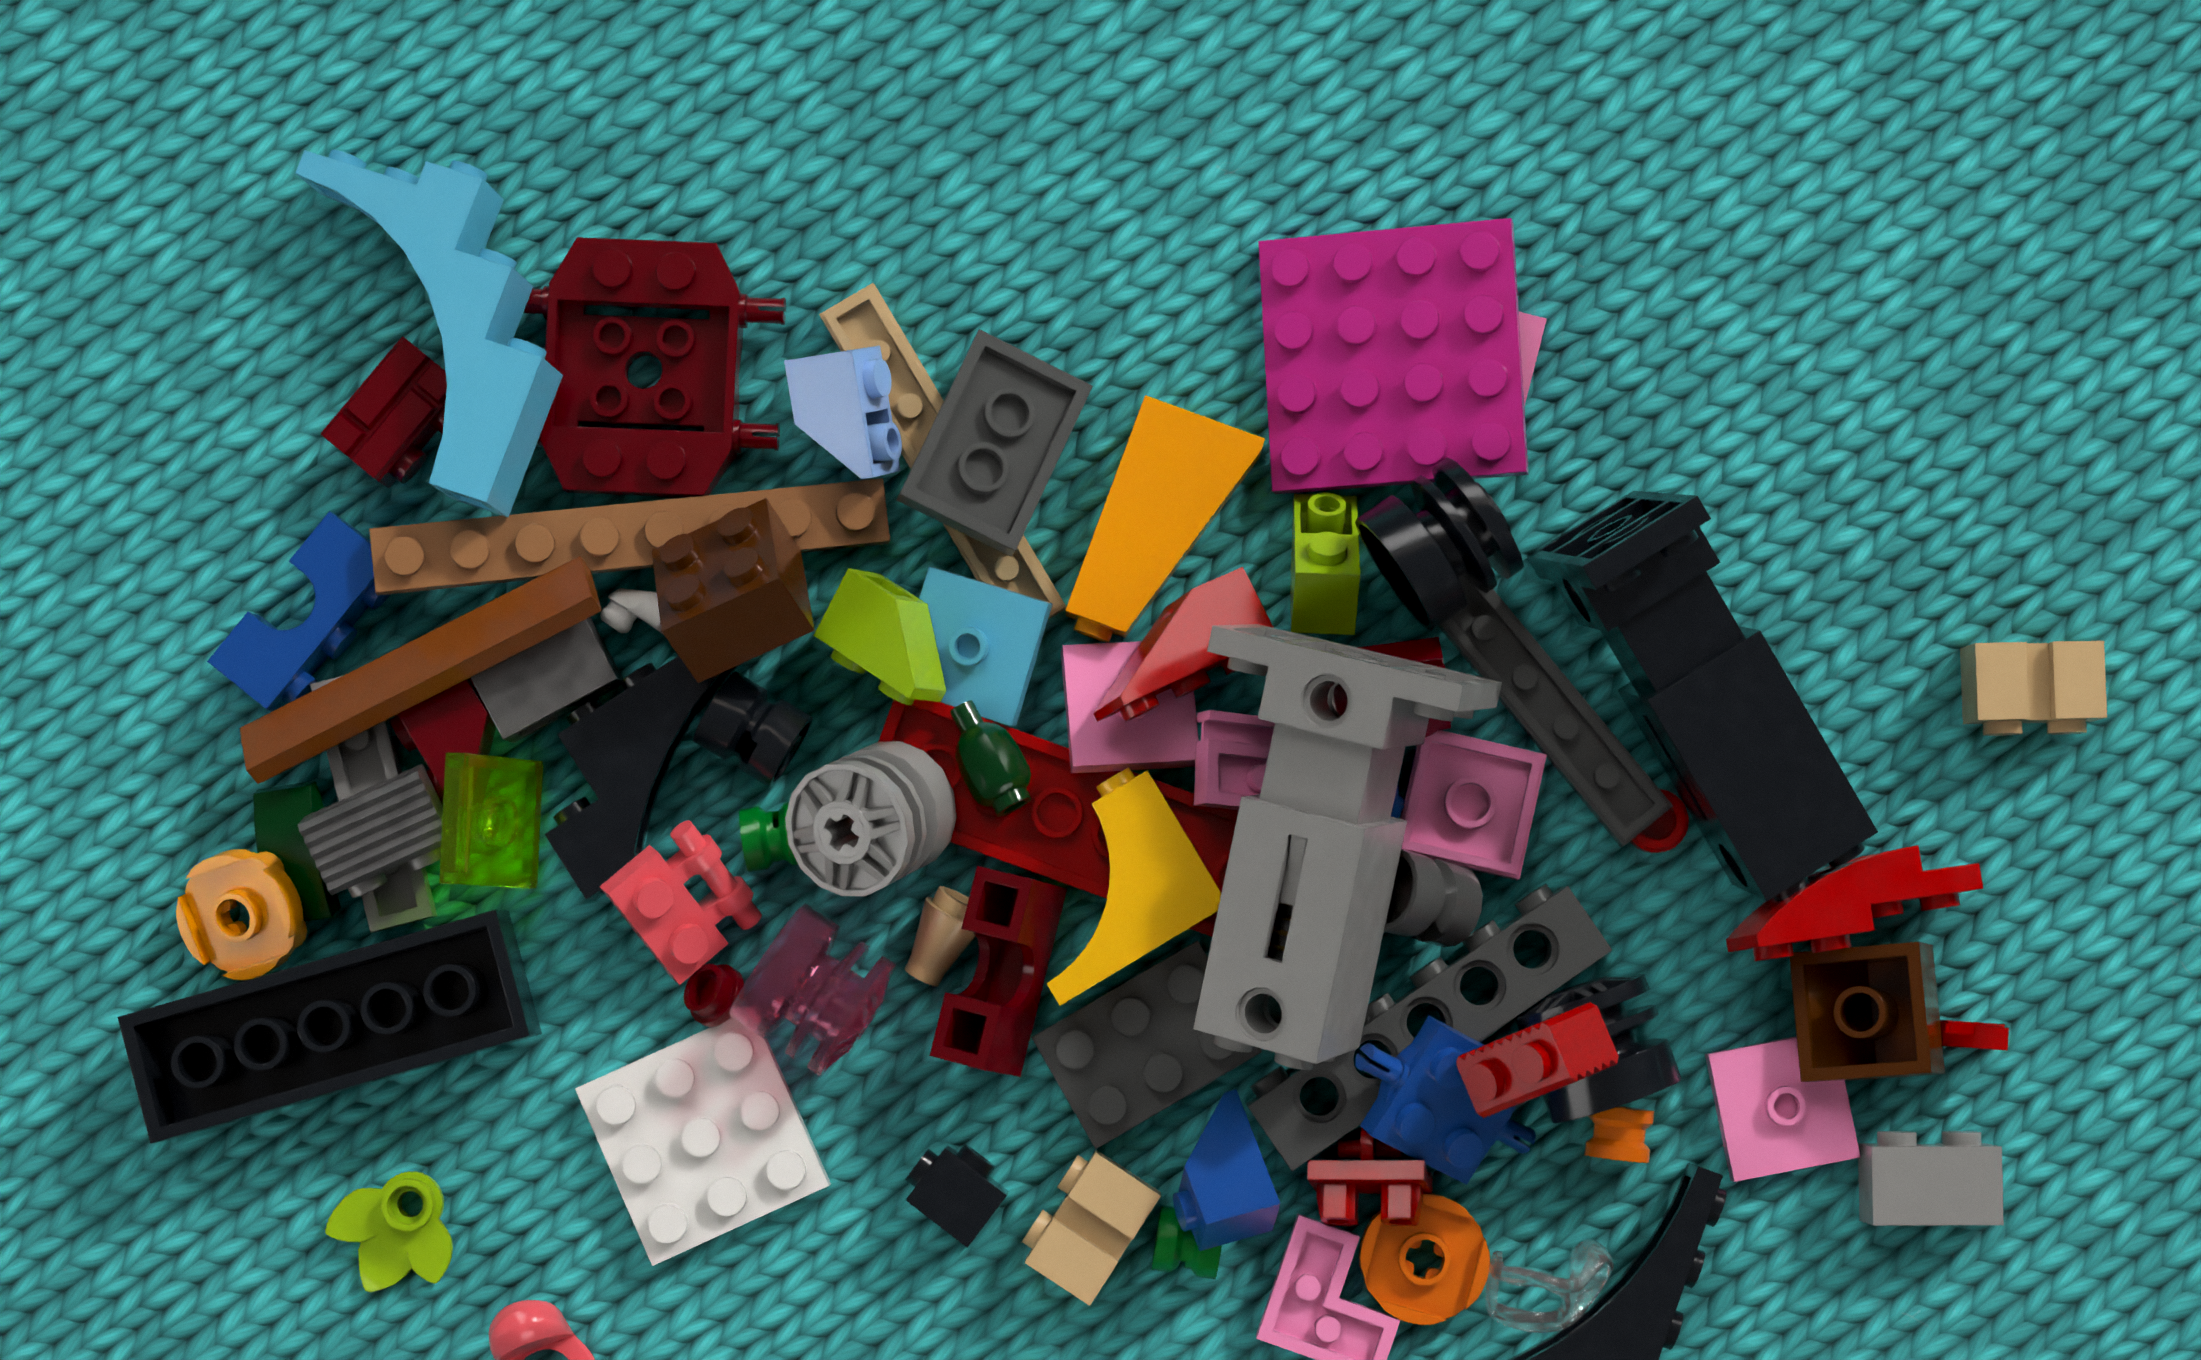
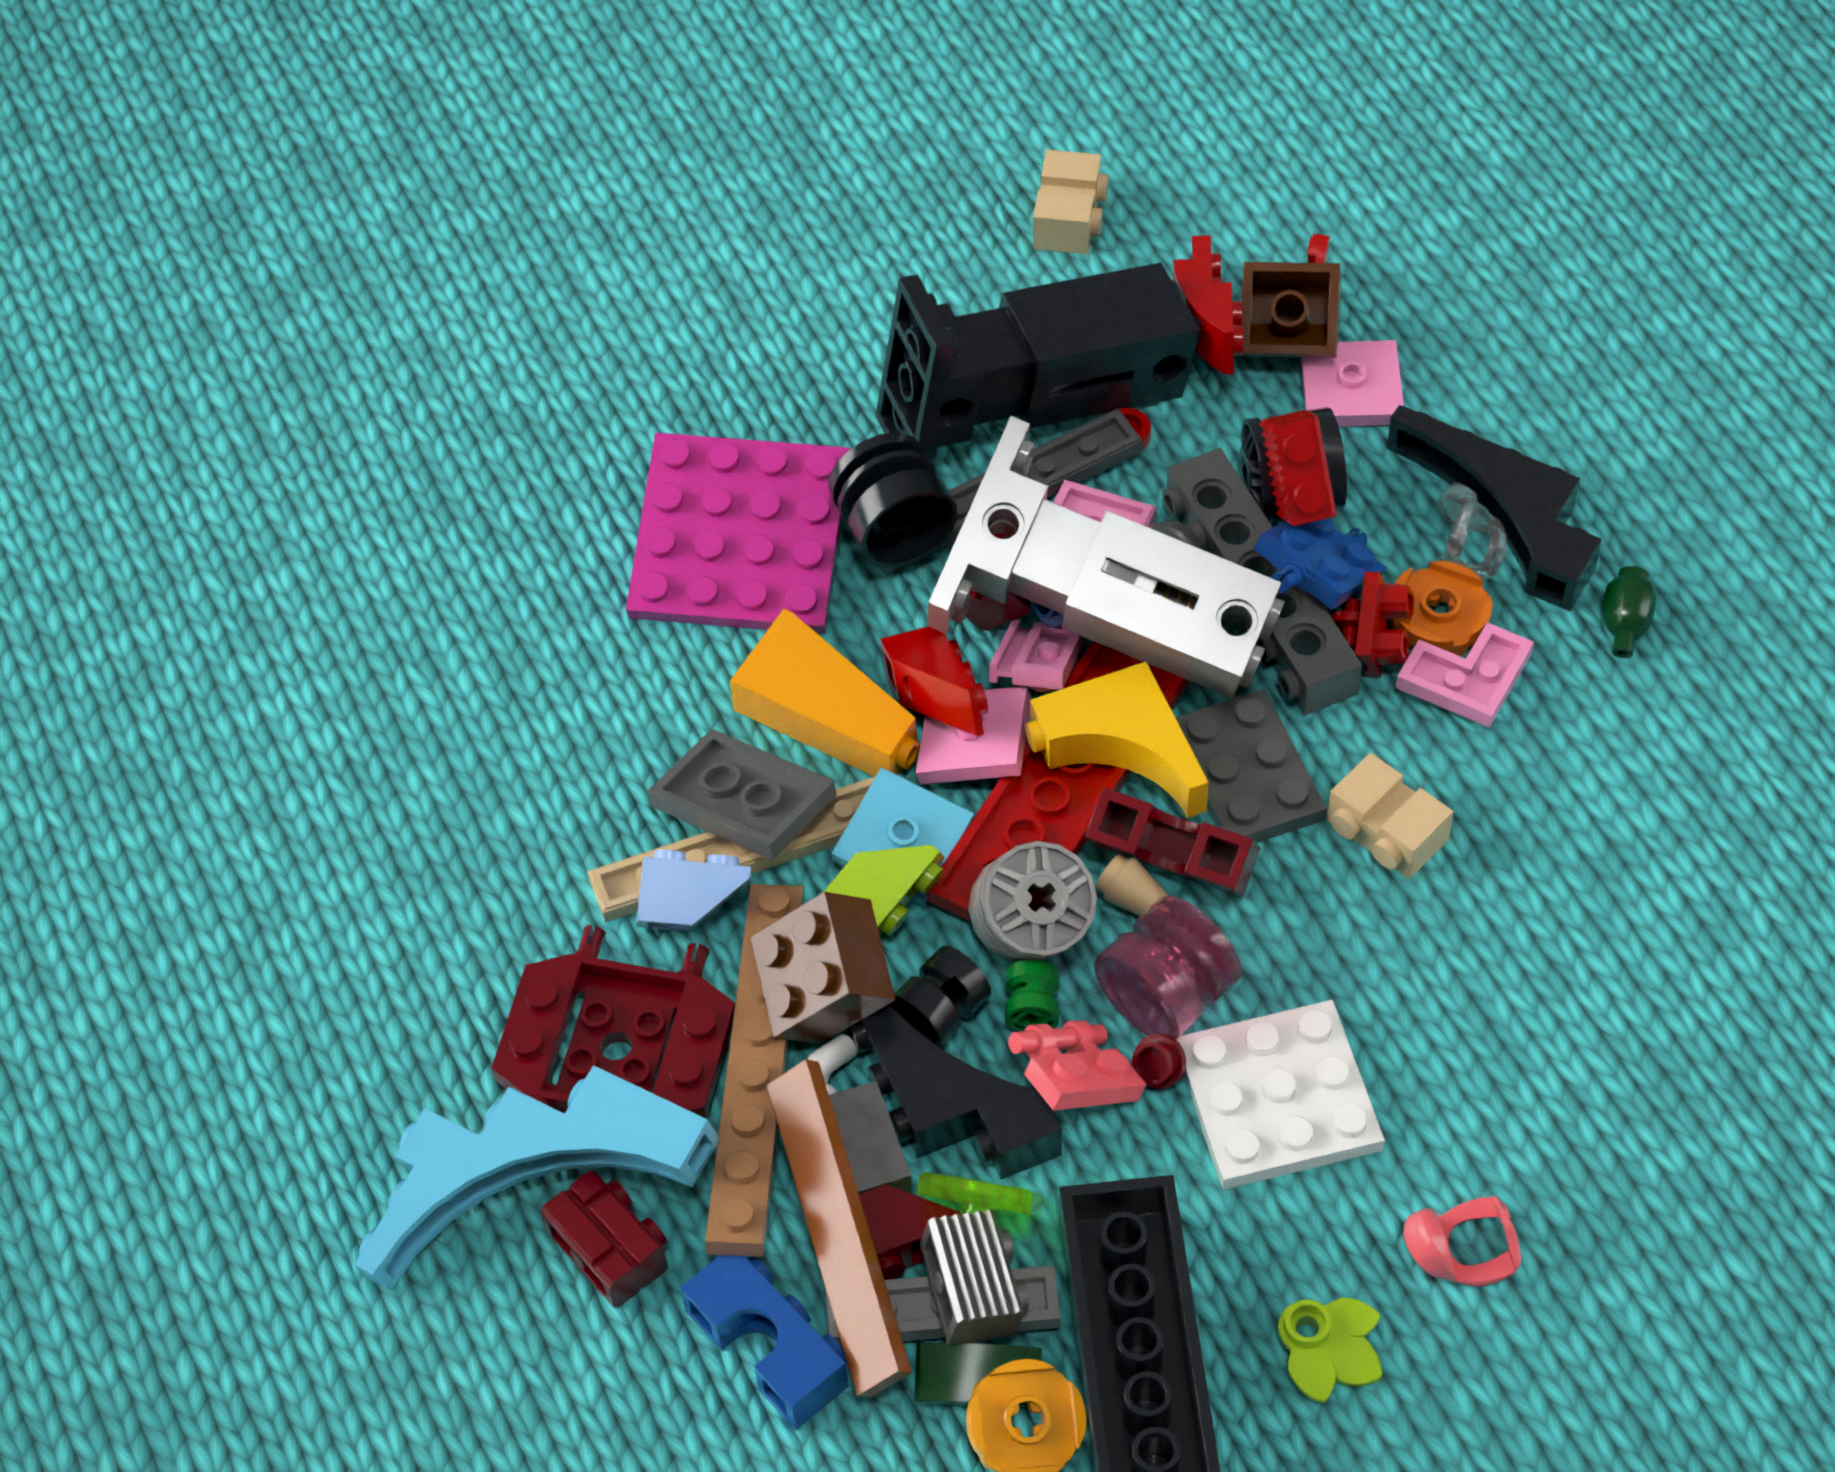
camera: 80 degrees left, 30 degrees down
(956, 1191) = (1351, 905): black brick -> none
(990, 762) = (1000, 823): dark green plant -> none
(1176, 1245) = (1411, 748): green wheel -> none
(1226, 1182) = (1359, 706): blue slope -> none
(1324, 564) = (886, 595): lime slope -> none
(1620, 1134) = (1363, 473): orange wheel -> none
(1930, 1182) = (1419, 300): light grey brick -> none

